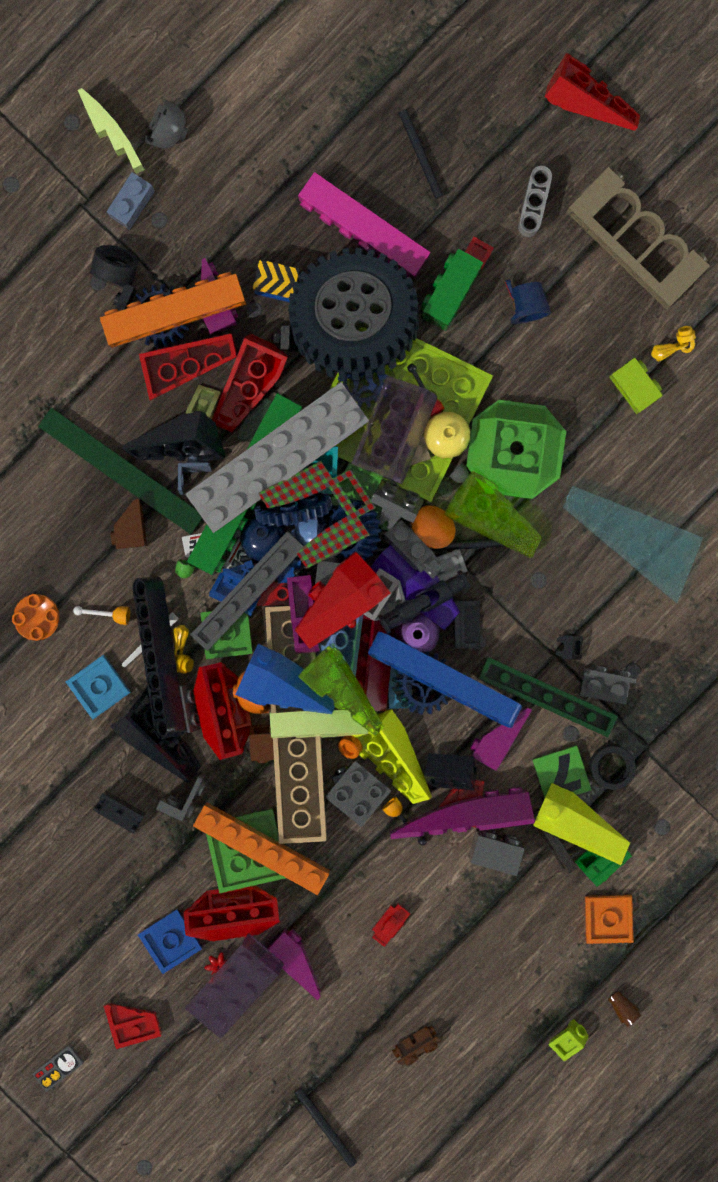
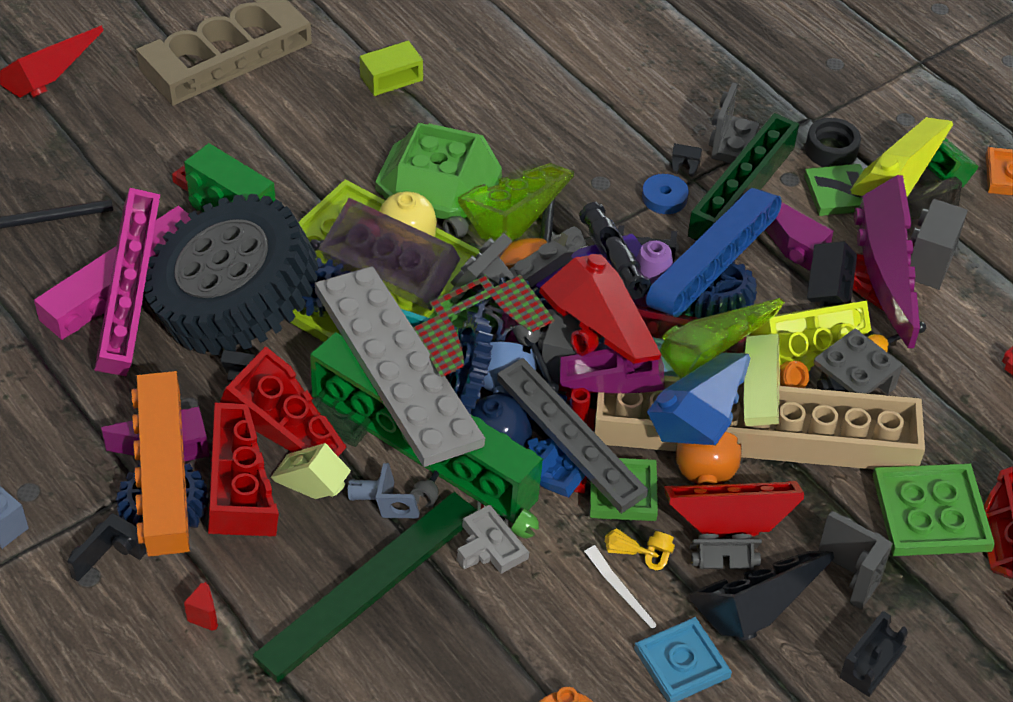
camera: 85 degrees left, 40 degrees down
(78, 367) = (200, 608): none -> red slope
(114, 264) = (71, 532): black tyre -> none
(120, 615) = (579, 611): hinge -> none
(130, 528) = (452, 576): reddish brown slope -> none
(159, 657) = (662, 572): black beam -> none
(166, 547) = (490, 541): none -> light grey hinge
(180, 438) = (343, 470): black wedge -> none
(261, 744) = (782, 462): reddish brown brick -> none
(261, 848) = (932, 472): orange brick -> none
(275, 280) = (162, 352): piece -> none
(334, 238) = (127, 283): none -> dark pink brick
(528, 302) = (266, 137): dark blue hat -> none
(535, 190) = (151, 120): light grey beam -> none
(541, 638) = (665, 194): none -> blue piece
(649, 545) = (568, 87): clear light blue wing -> none
(684, 335) = (344, 27): yellow piece -> none

